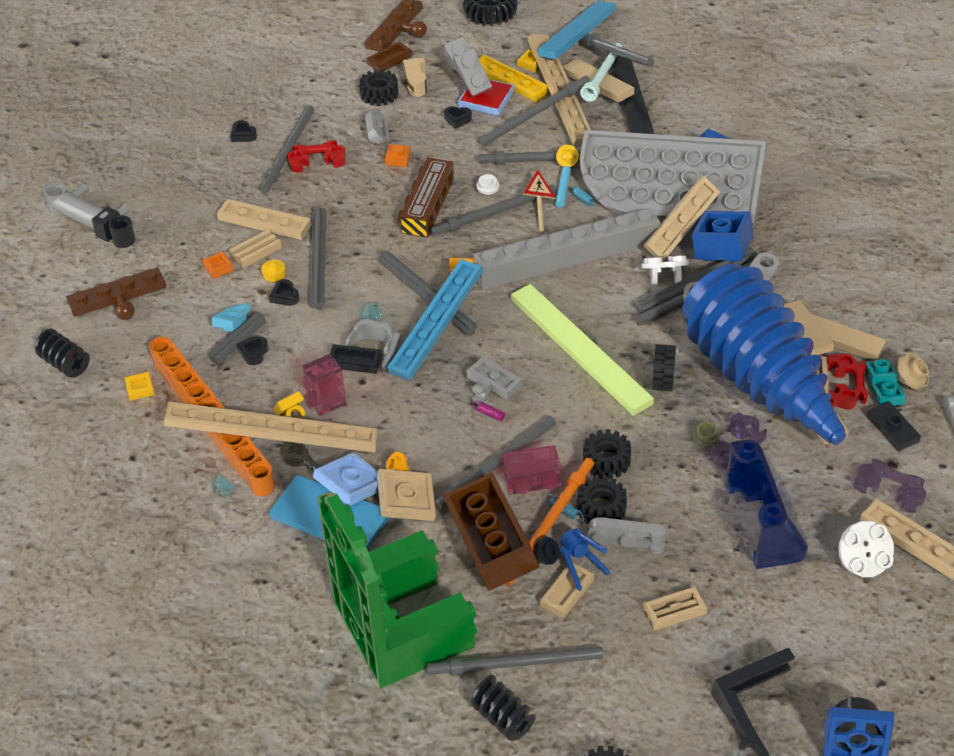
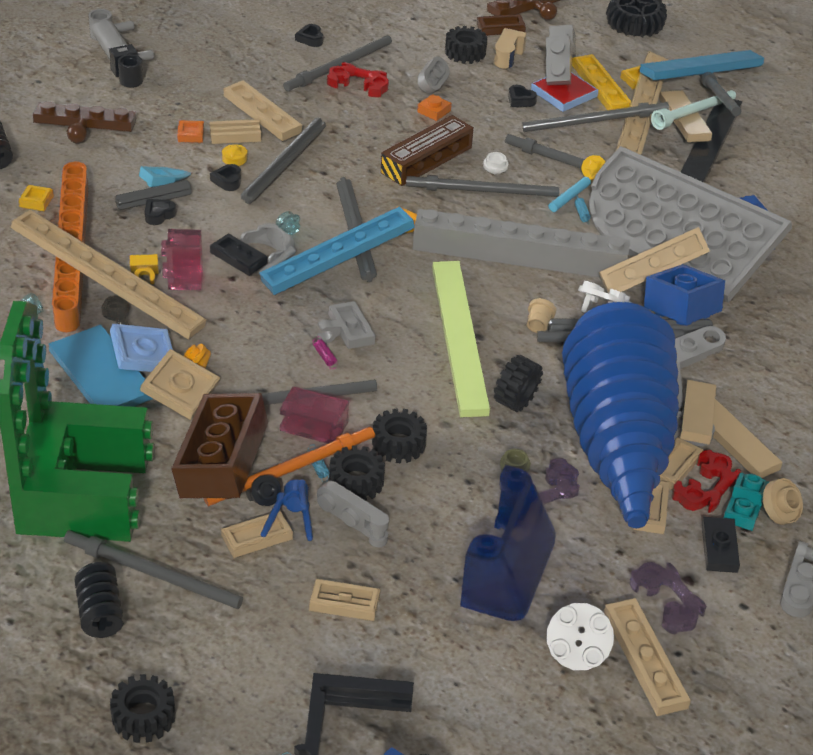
camera: 25 degrees right, 5 degrees down
(539, 188) = (541, 184): piece -> none
(628, 302) = (540, 313): none -> tan piece

